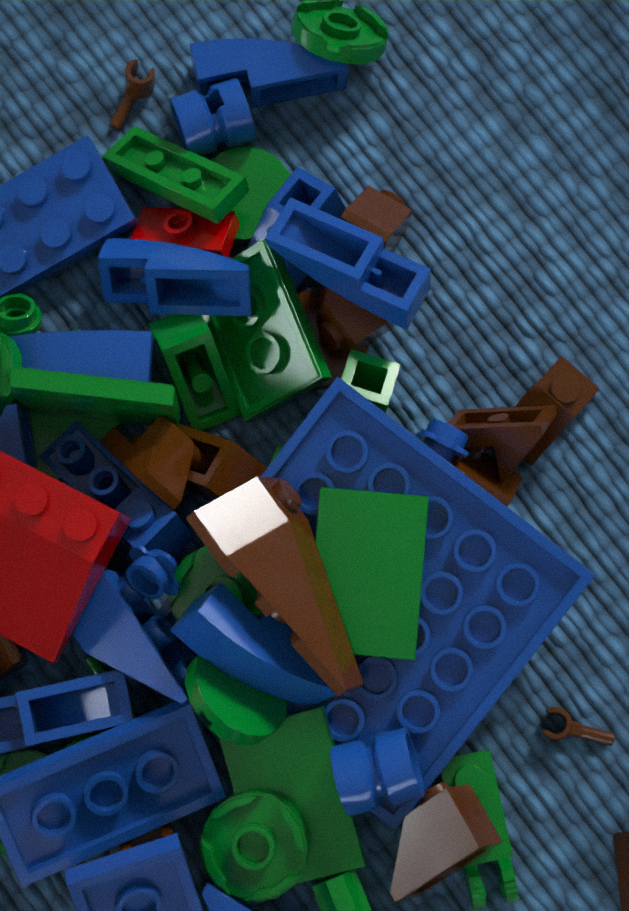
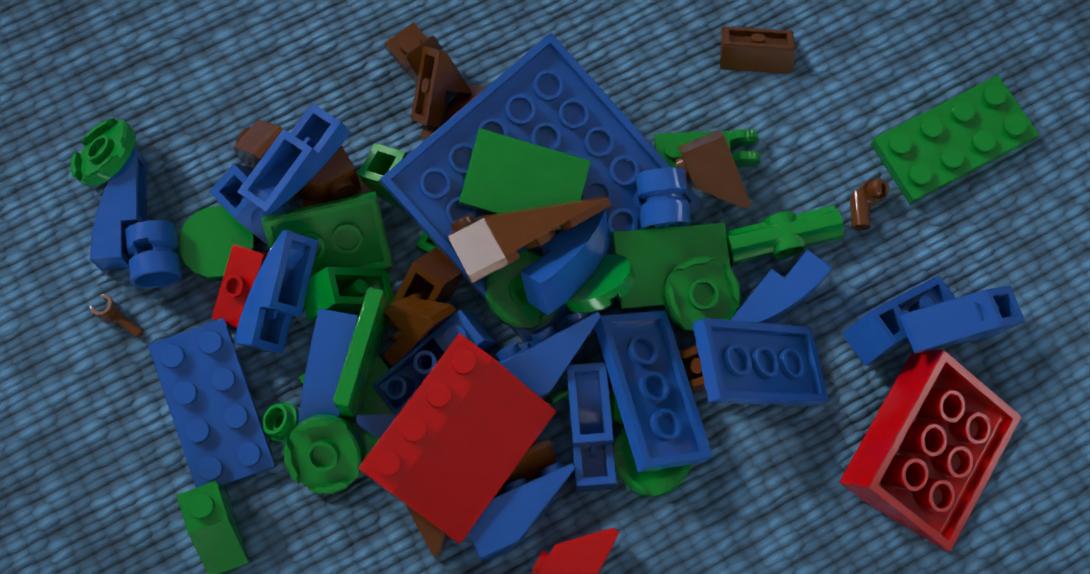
camera: 75 degrees left, 5 degrees down
(152, 572) = (501, 330): blue plate -> none
(176, 174) = (193, 283): green plate -> none
(444, 440) = (435, 118): blue plate -> none
(577, 730) = (648, 78): reddish brown hand -> none

